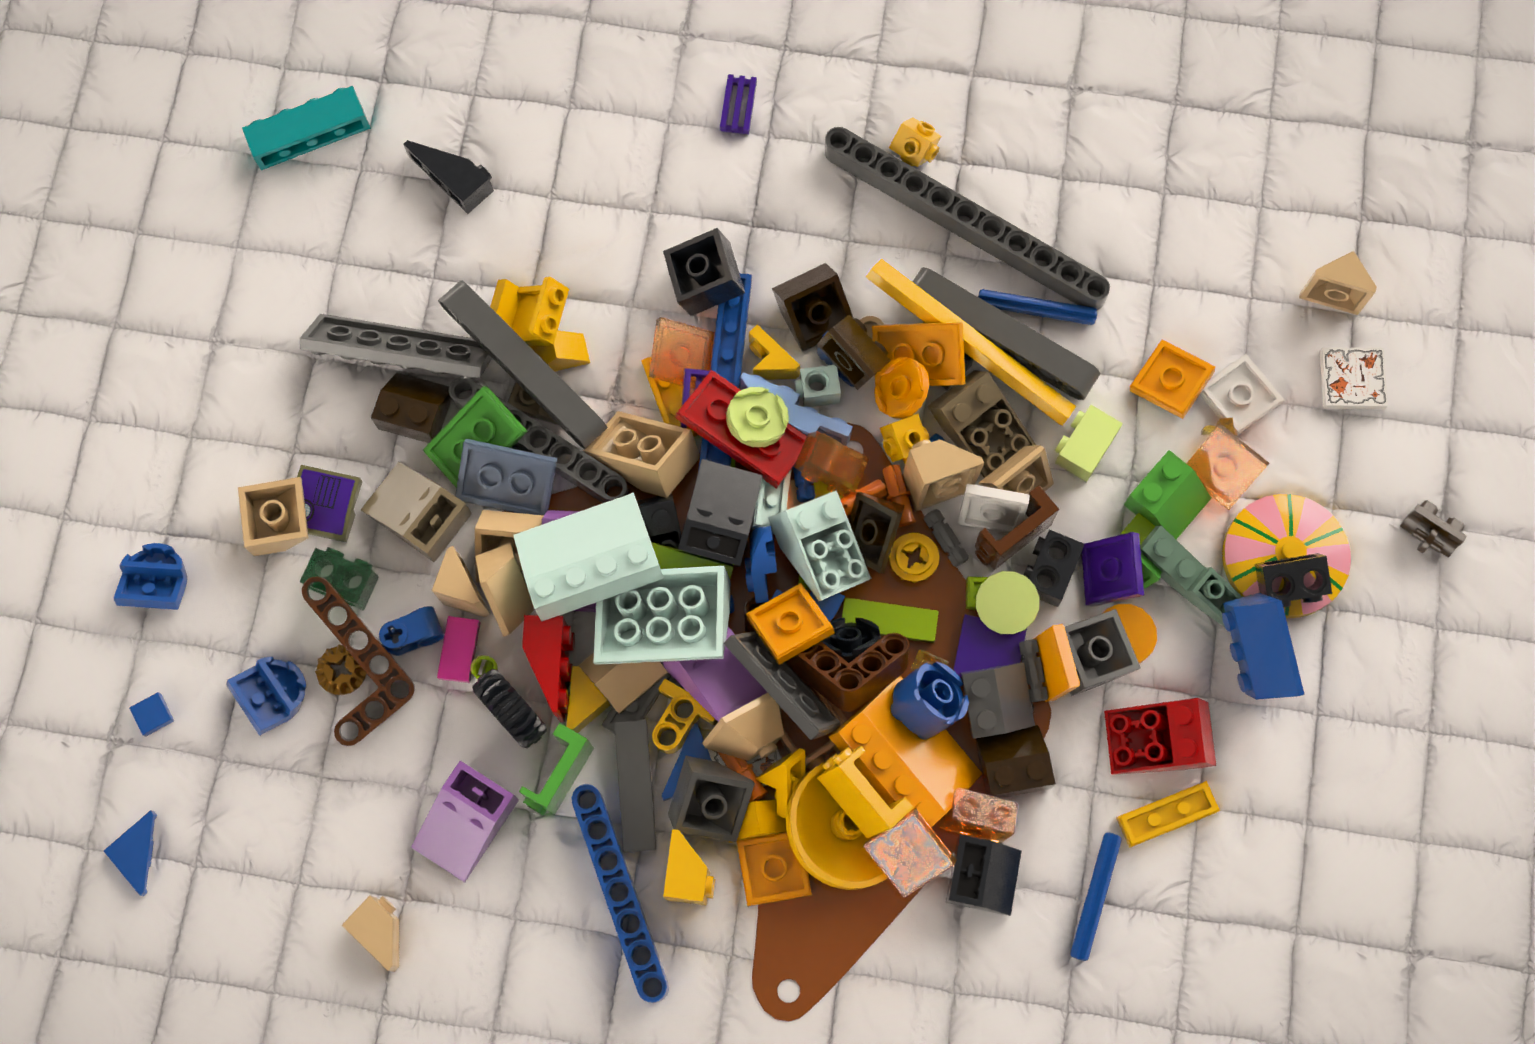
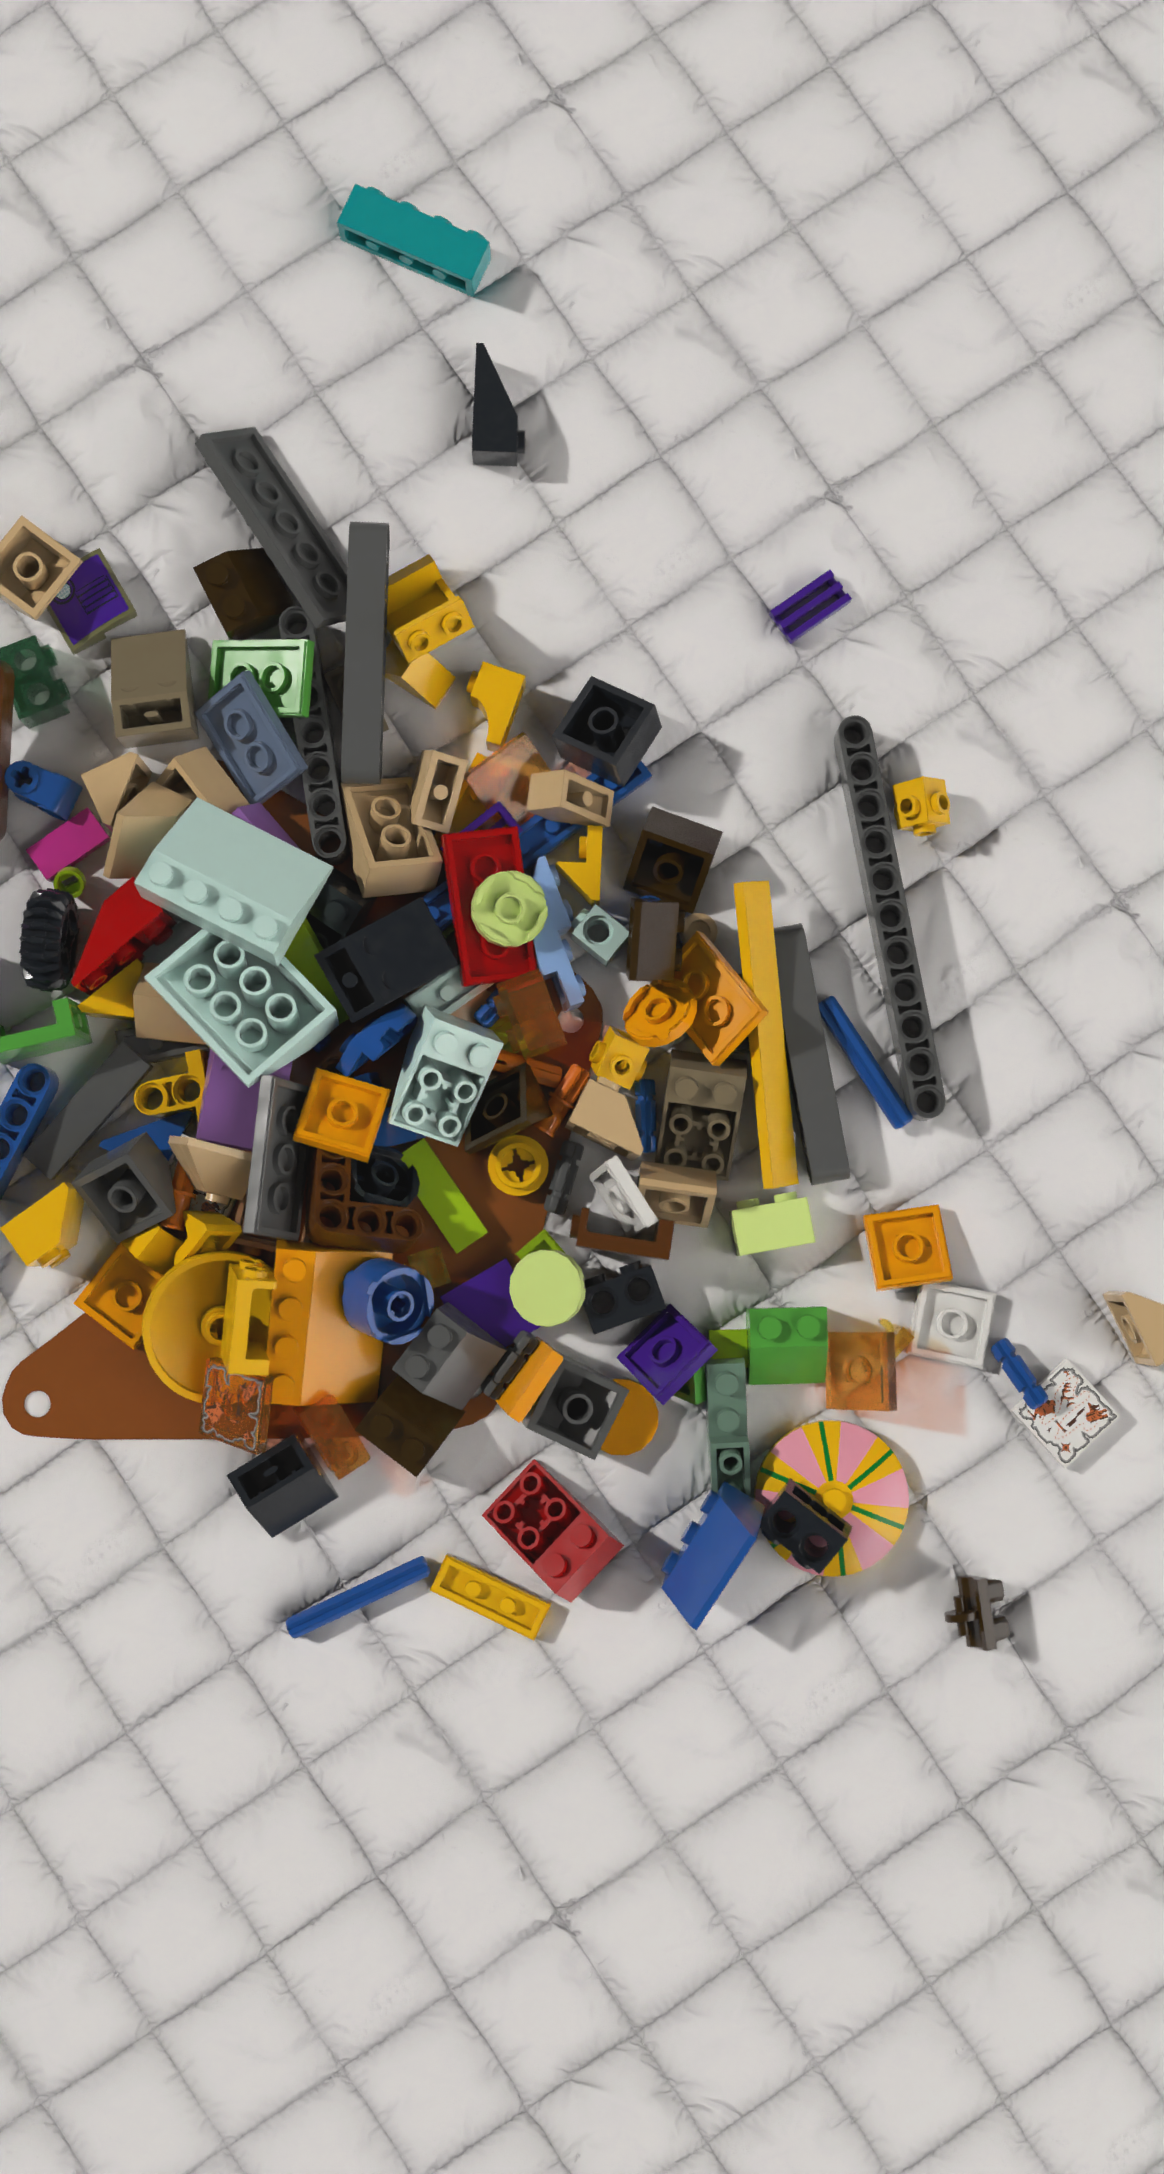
camera: 40 degrees right, 10 degrees up
(620, 319) = (498, 696): none -> yellow arch
(642, 397) = (436, 790): none -> tan slope
(722, 328) = (569, 799): none -> tan slope
(1306, 381) = (1019, 1373): none -> blue axle

